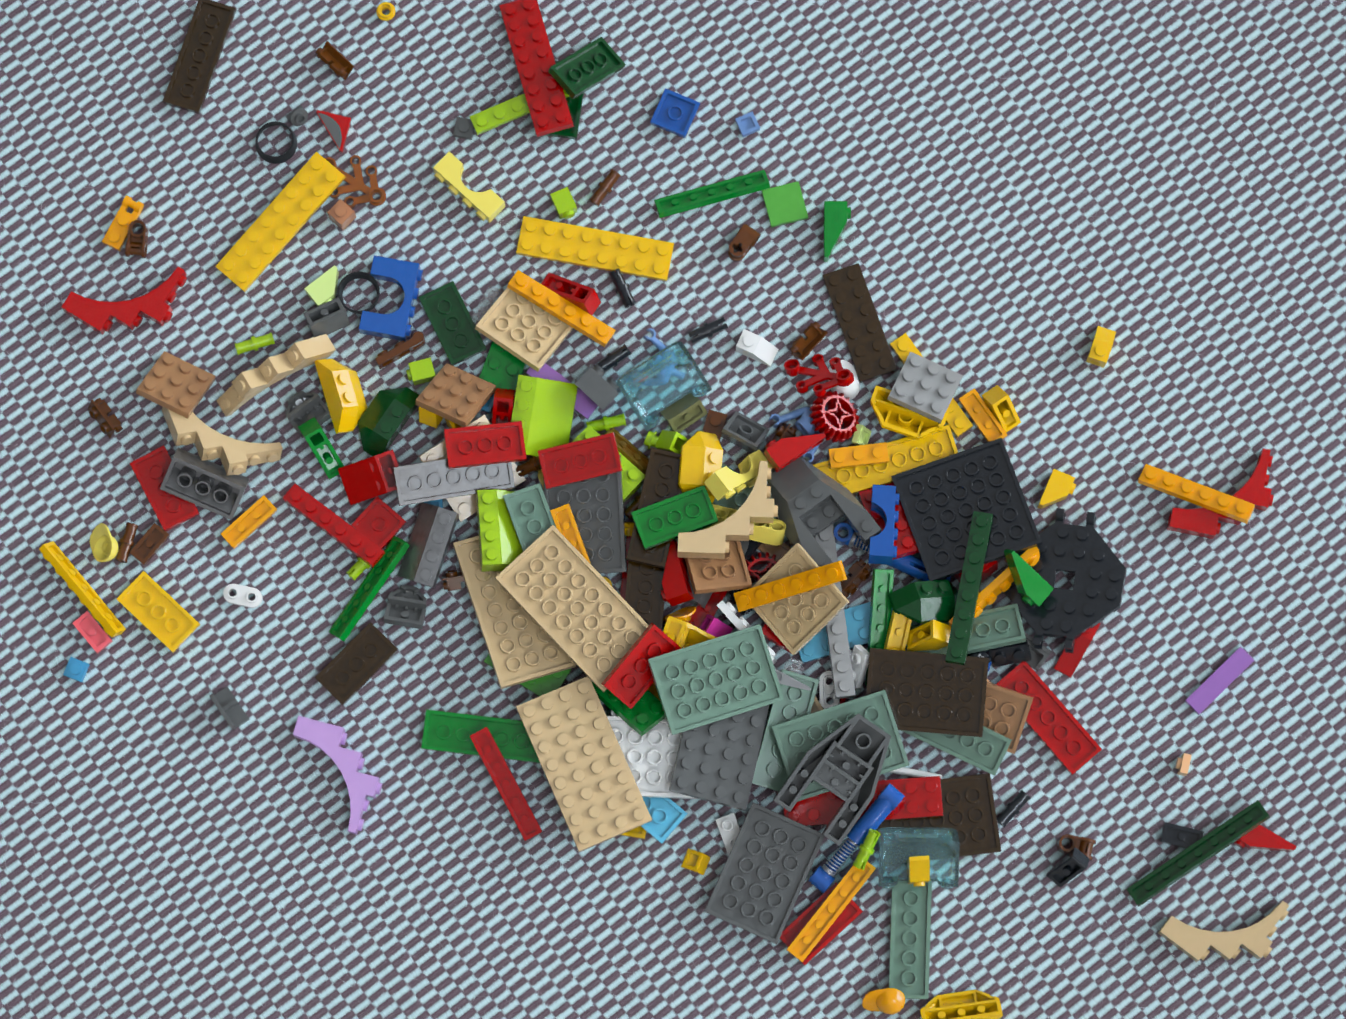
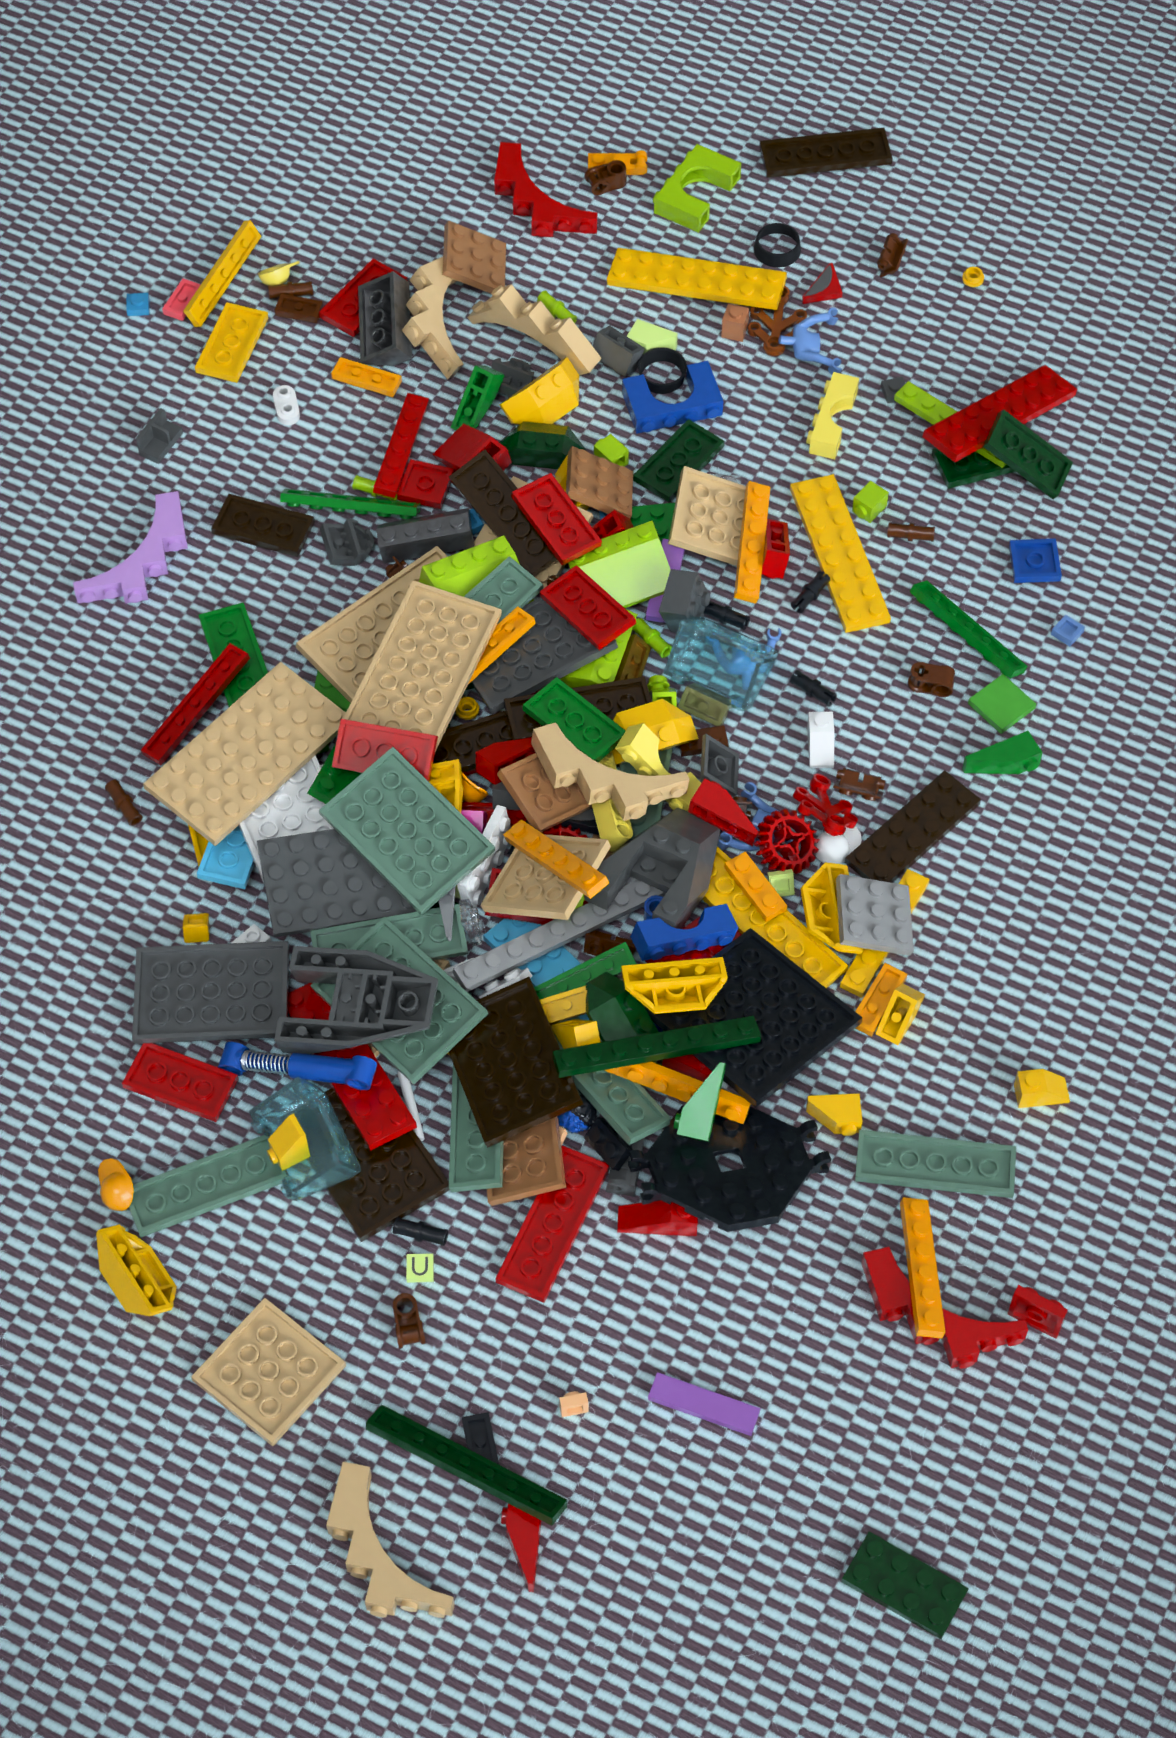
camera: 65 degrees right, 20 degrees down
(98, 410) = (414, 217): reddish brown hinge -> none
(190, 200) = (699, 166): none -> lime arch
(297, 116) = (815, 251): dark grey plate -> none
(389, 170) = (807, 343): none -> medium blue piece
(401, 349) = (622, 428): reddish brown plate -> none
(564, 871) = (123, 802): none -> reddish brown pin
(829, 911) = (198, 1077): light orange plate -> none
(866, 849) = (285, 1075): lime pin -> none
(932, 552) = (675, 984): none -> yellow wedge
(1038, 820) = (420, 1268): none -> yellowish green tile
(1068, 867) = (375, 1321): black slope -> none
(1068, 953) = (268, 1371): none -> tan plate
(1122, 444) = (936, 1163): none -> sand green plate
(1255, 440) = (1037, 1311): none -> red plate

